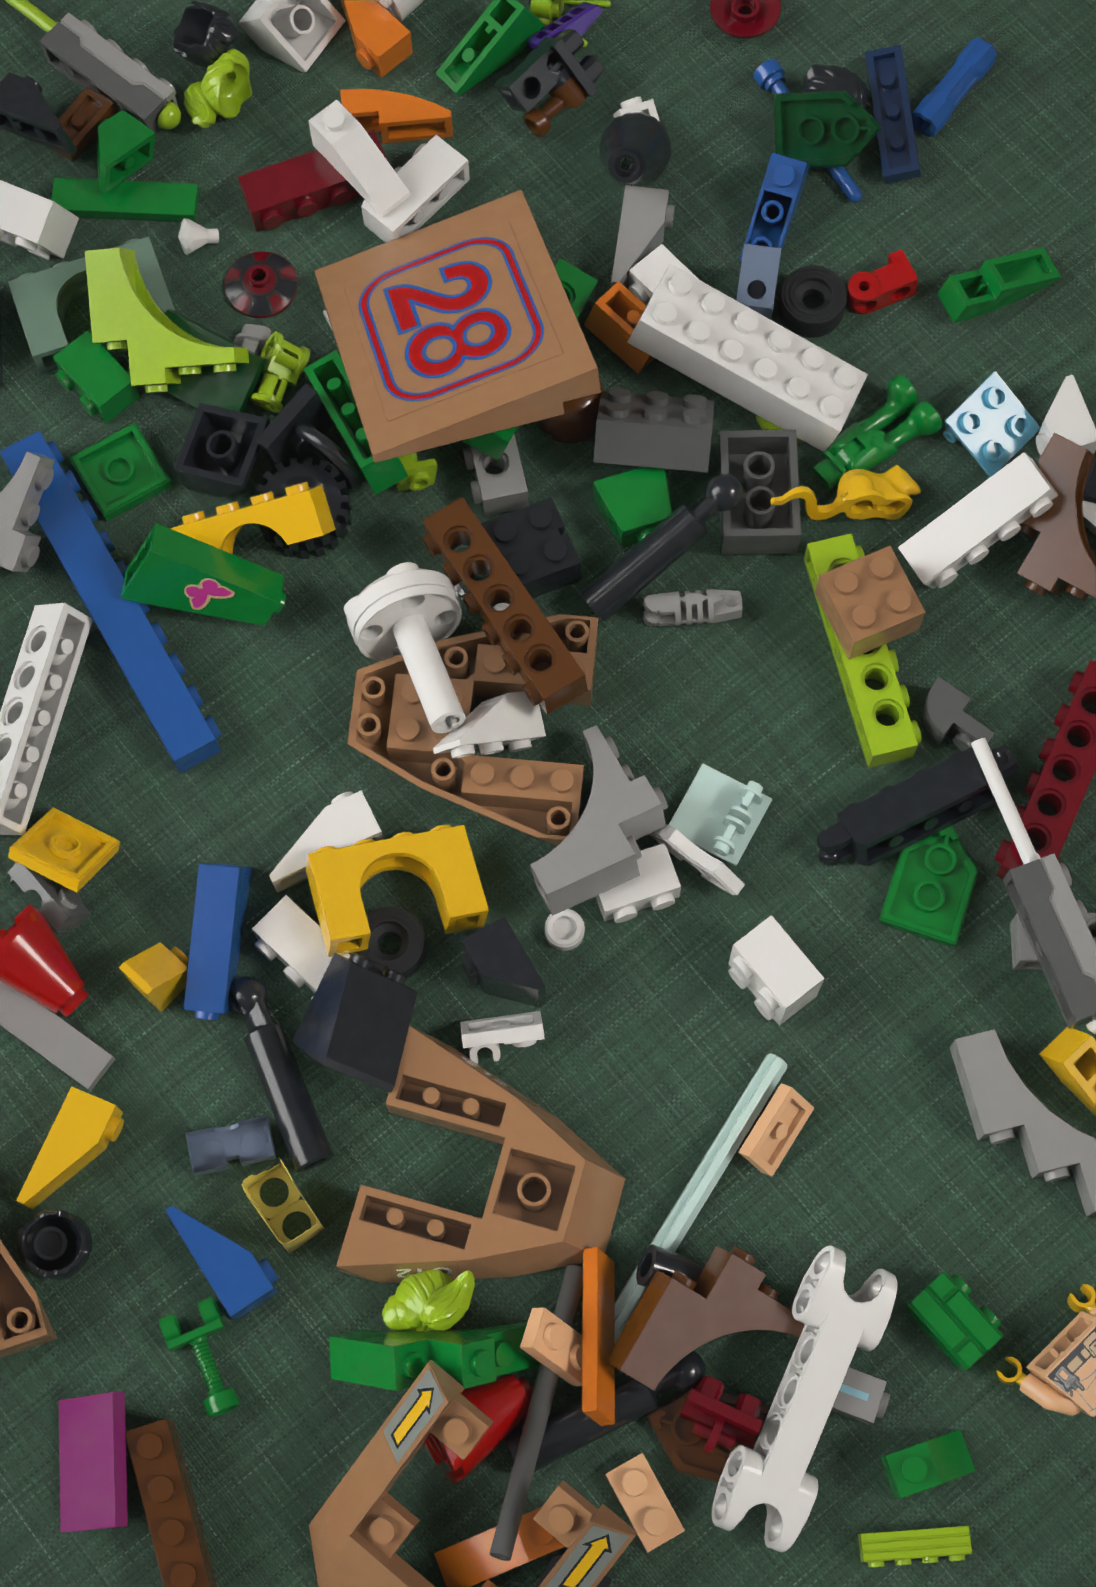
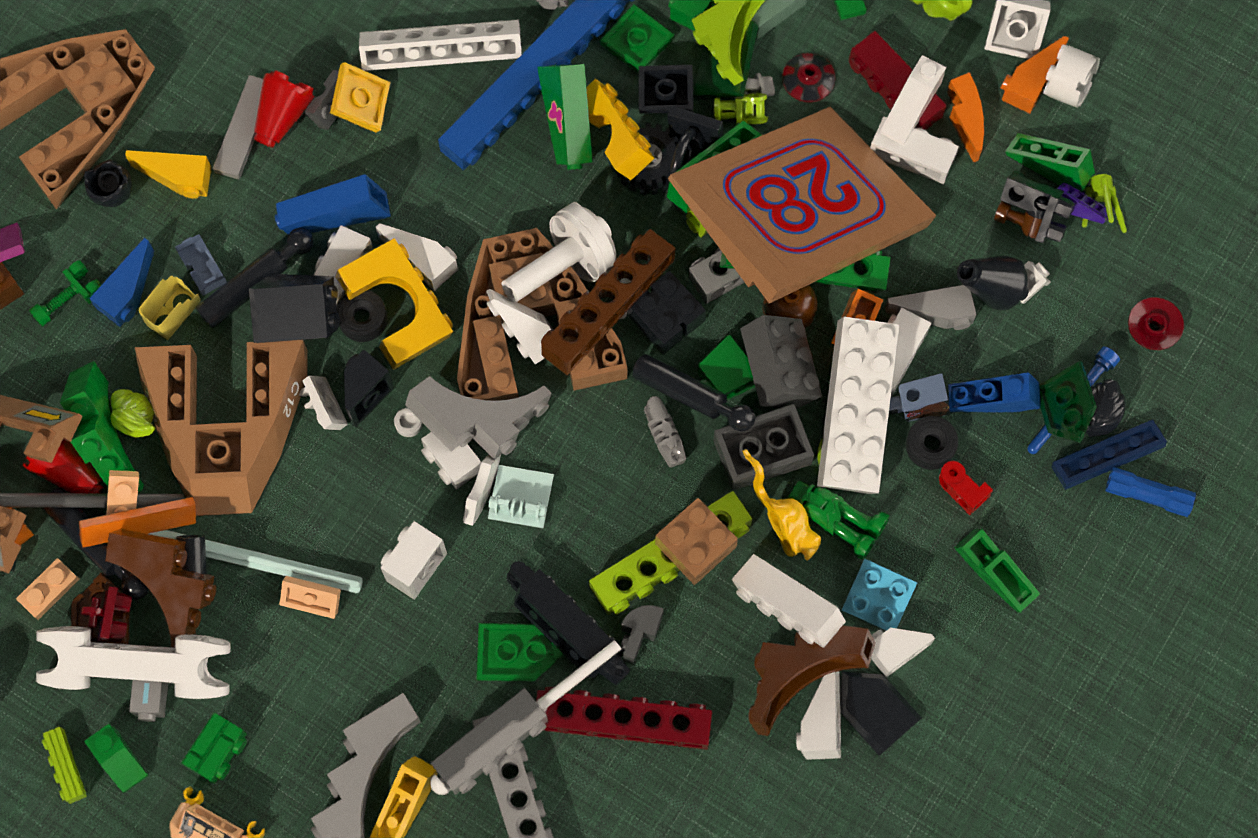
camera: 70 degrees right, 0 degrees up
(158, 974) = (292, 178): yellow slope -> none
(194, 236) = (826, 22): white rock -> none

